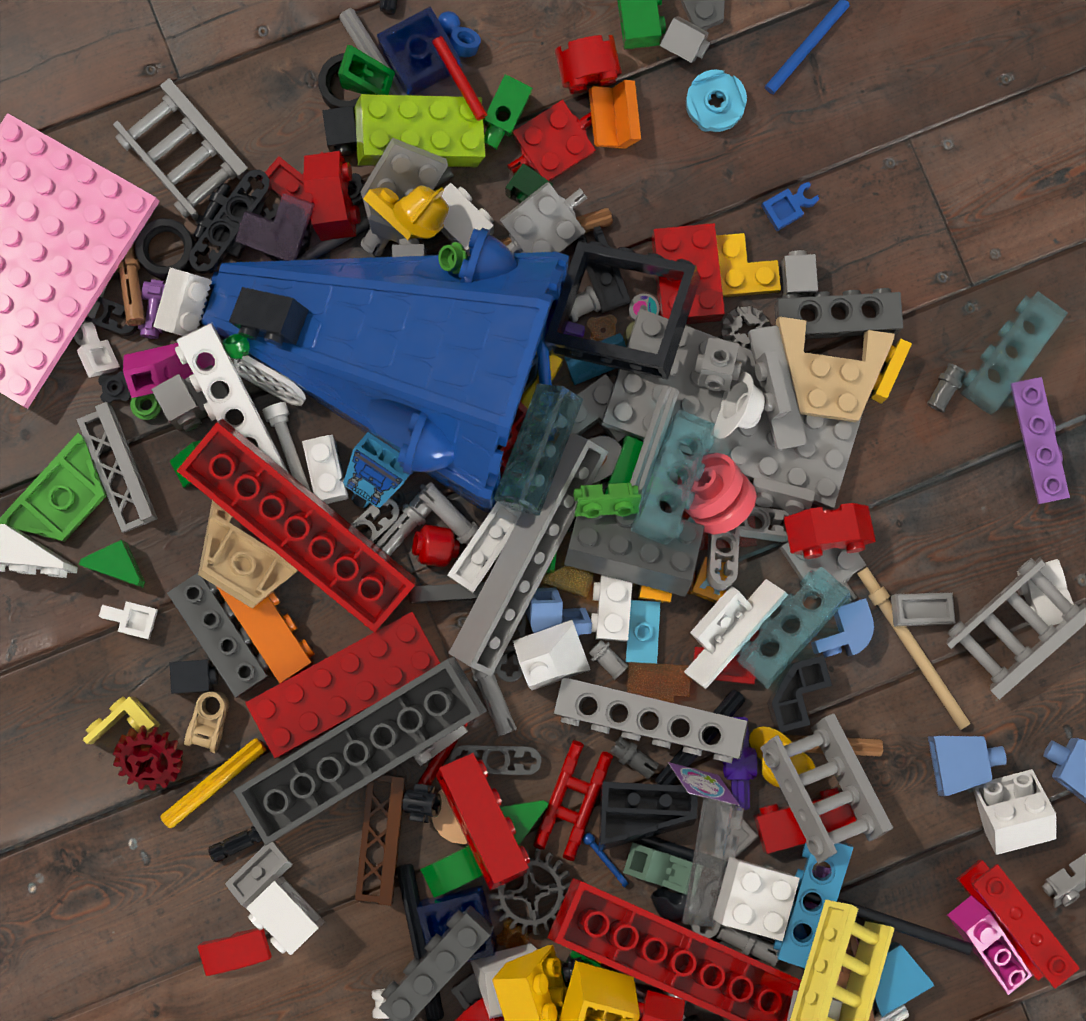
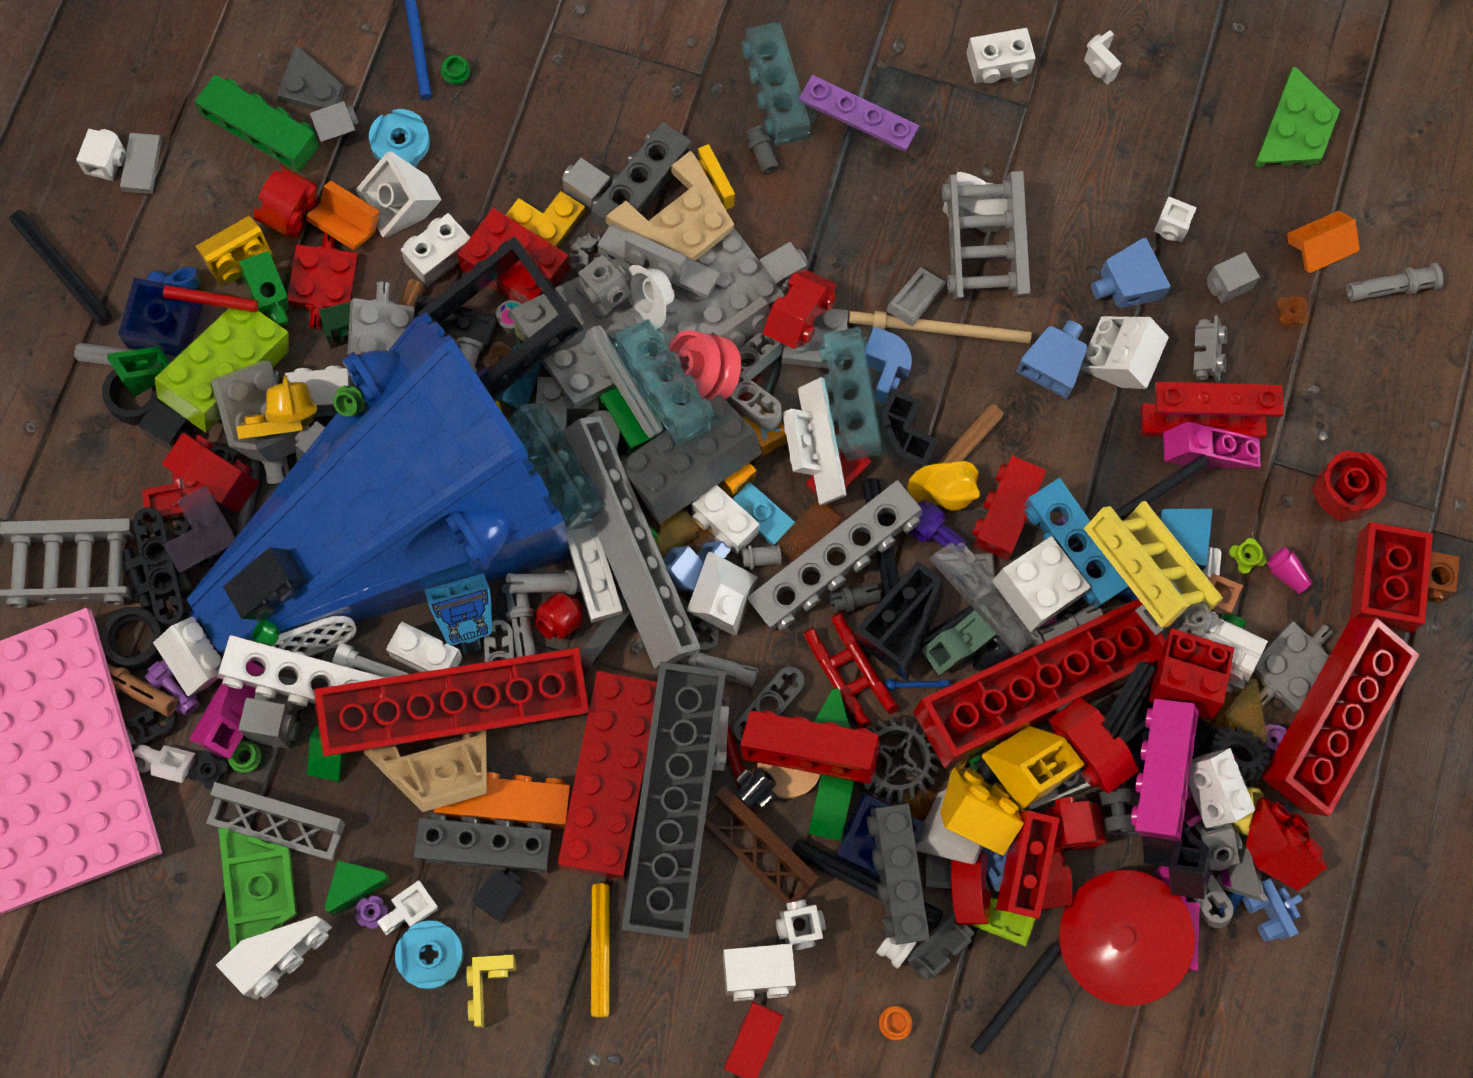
camera: 50 degrees left, 10 degrees down
(92, 661) = (414, 942): none -> medium azure plate
(115, 597) = (364, 906): none -> medium lavender plate
(148, 758) = (524, 978): dark red gear -> none
(207, 723) = (548, 913): tan piece -> none
(234, 844) = (666, 968): black axle -> none
(258, 873) = (706, 970): light grey plate -> none
(340, 928) = (812, 929): none -> white brick
(518, 58) = (229, 247): none -> yellow slope
(620, 500) = (647, 435): bright green hinge -> none
(648, 206) = (435, 249): none -> white brick
(668, 139) = (399, 193): none -> white slope
(703, 784) = (919, 555): sticker -> none
(786, 208) = (526, 153): blue plate -> none
(810, 93) = (455, 70): none -> green plate
(850, 776) = (1003, 442): light grey fence -> none
(860, 486) = (783, 264): none -> light grey brick

